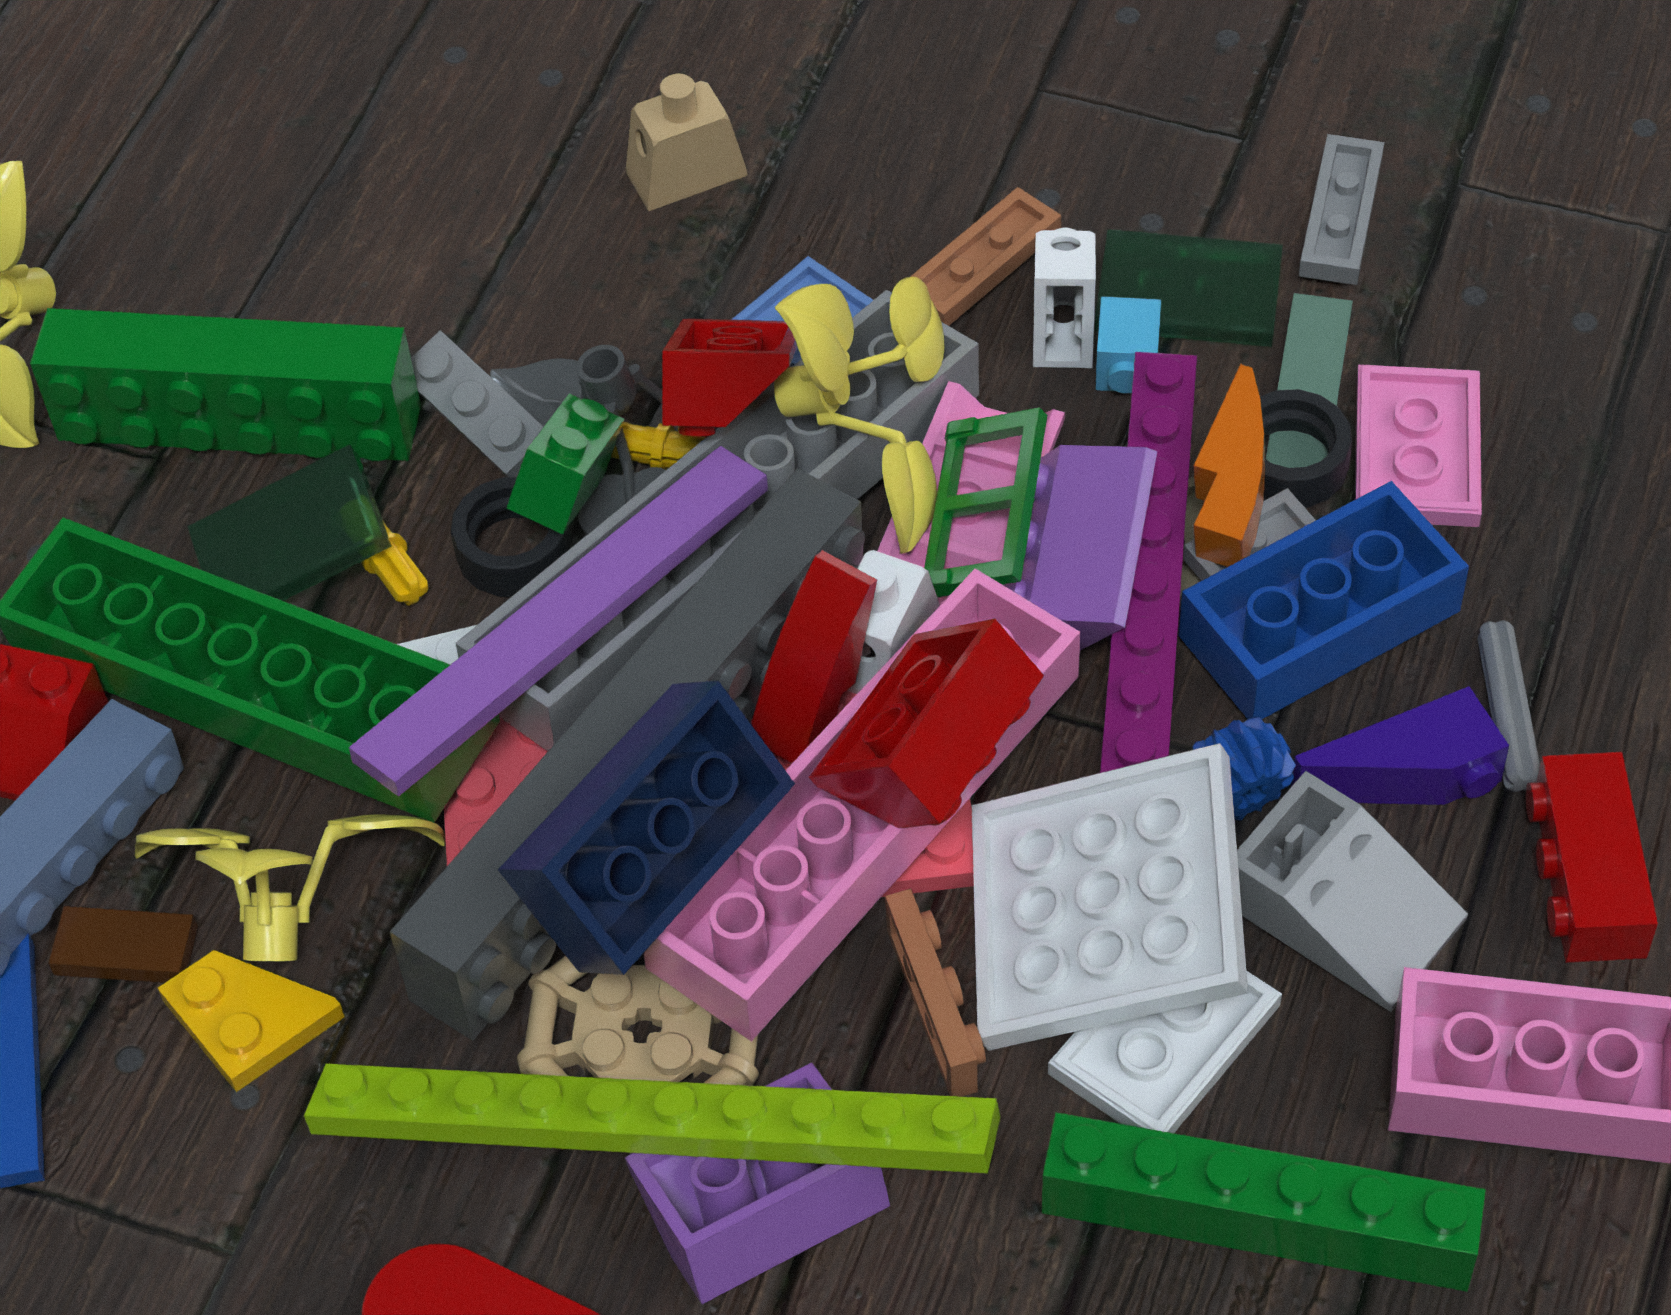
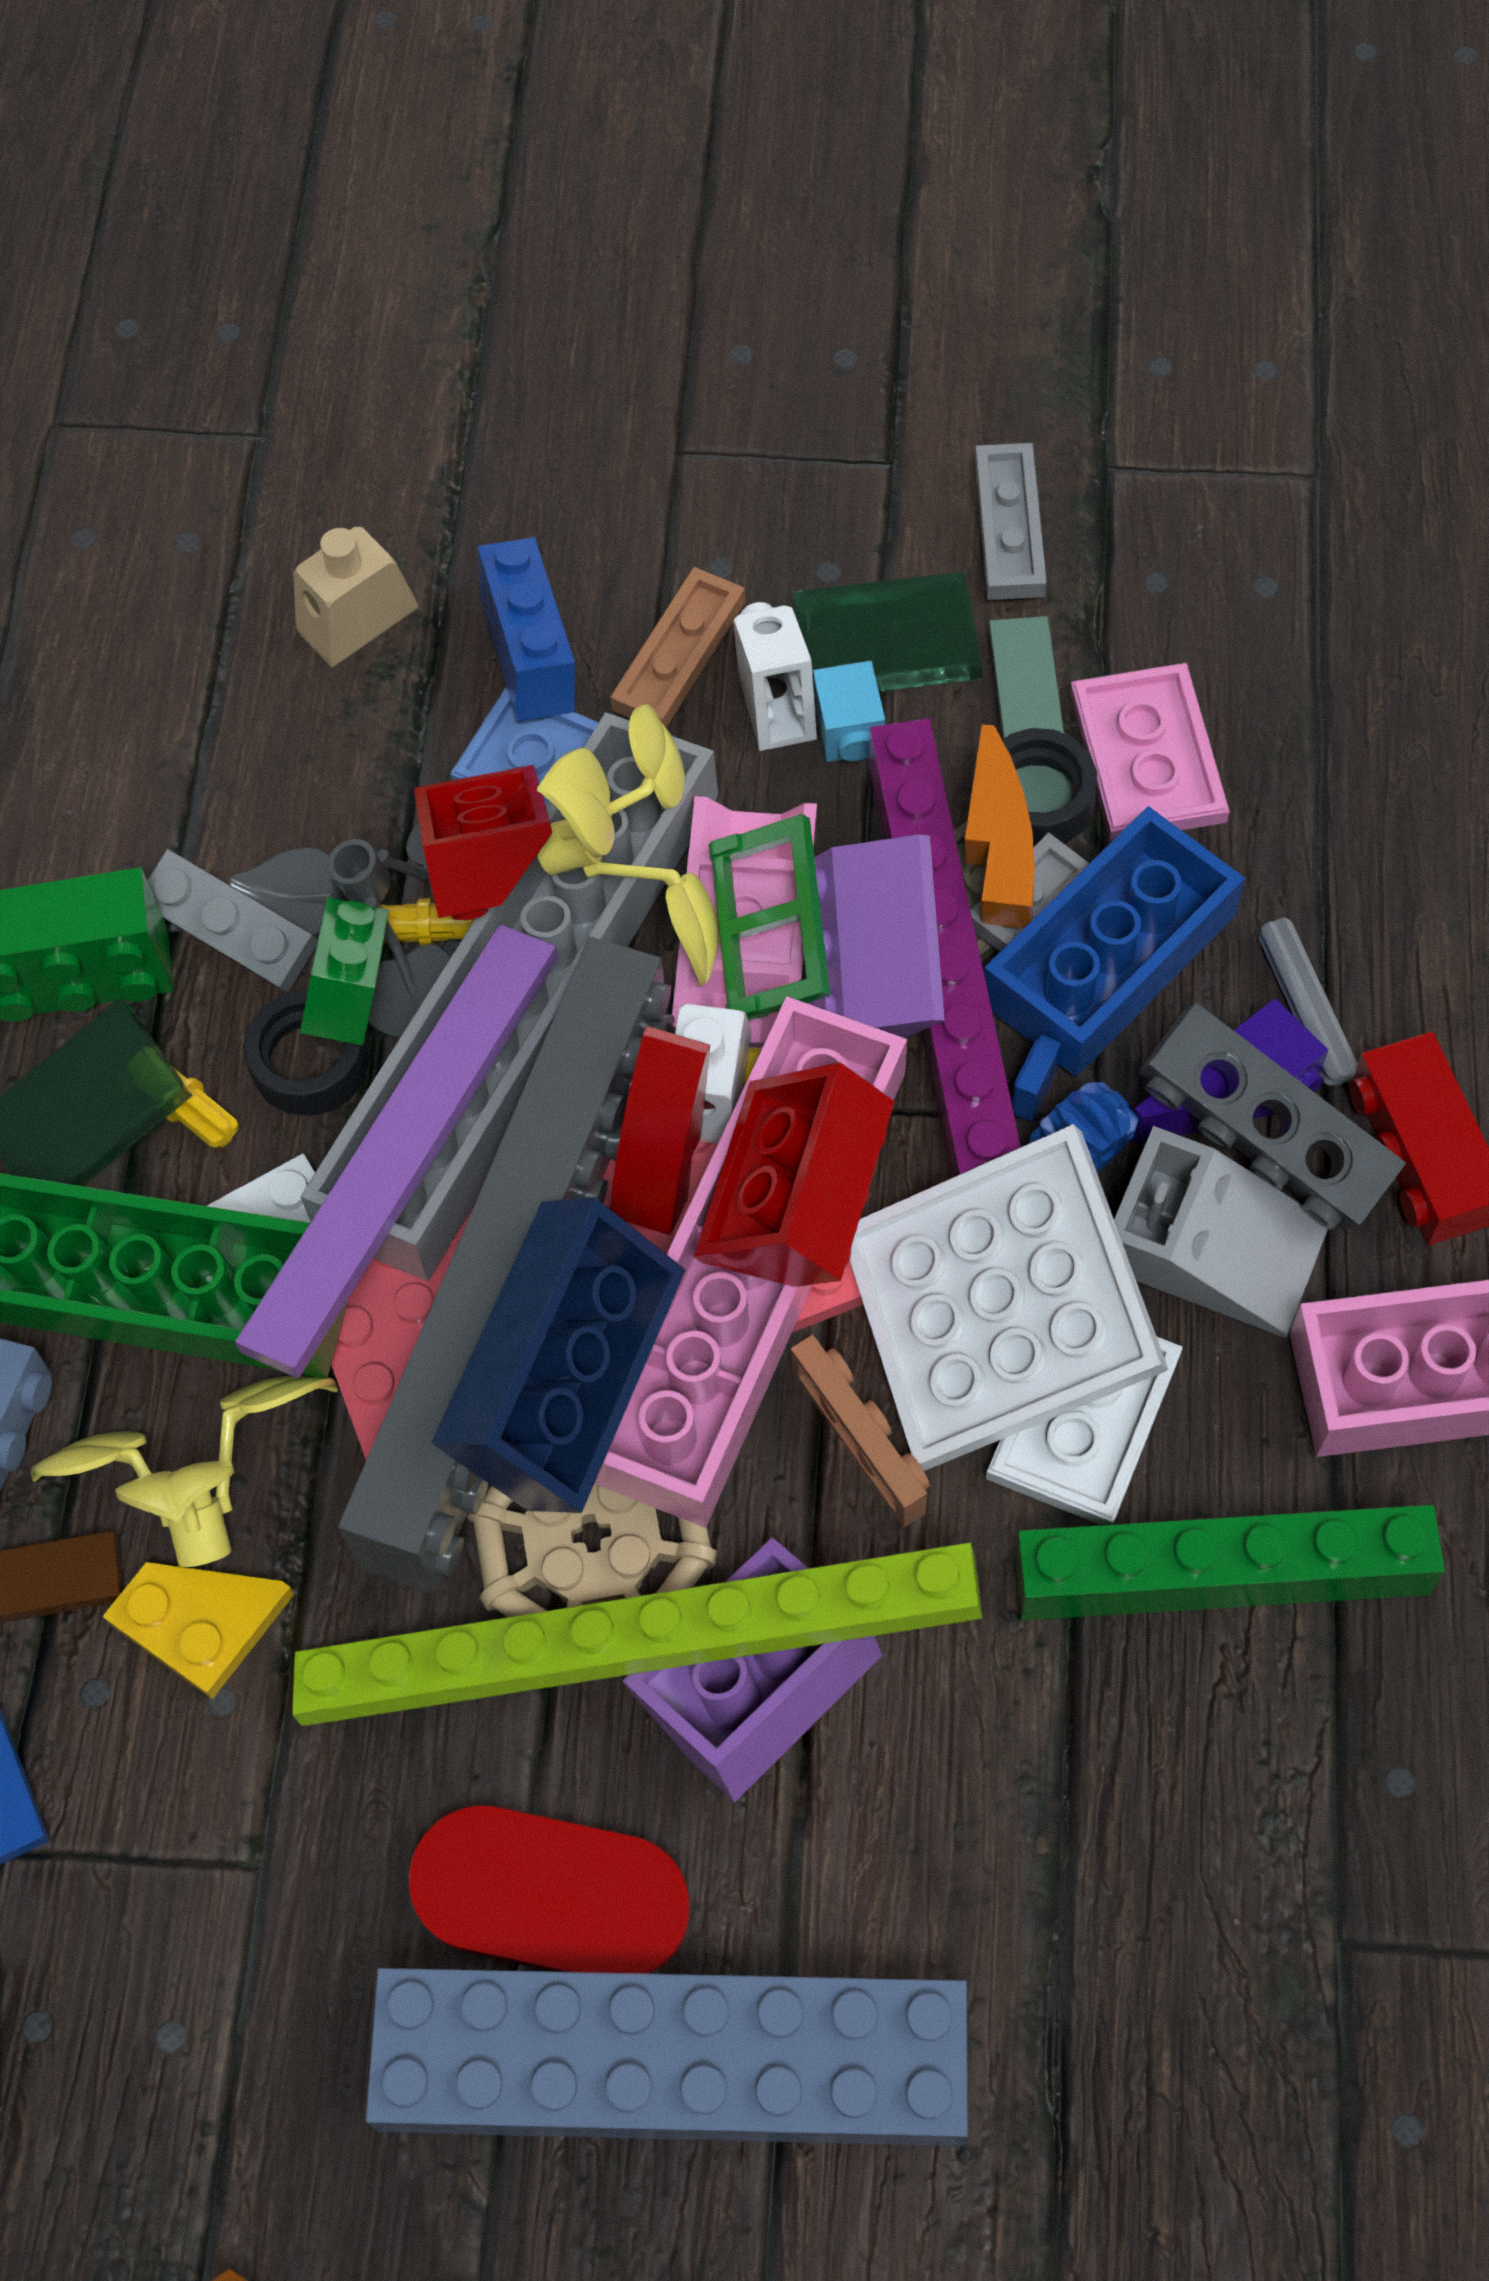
camera: 15 degrees left, 10 degrees up
(838, 206) = (526, 629): none -> blue brick
(1210, 709) = (1035, 1077): none -> blue tile
(1376, 701) = (1359, 1162): none -> dark grey brick

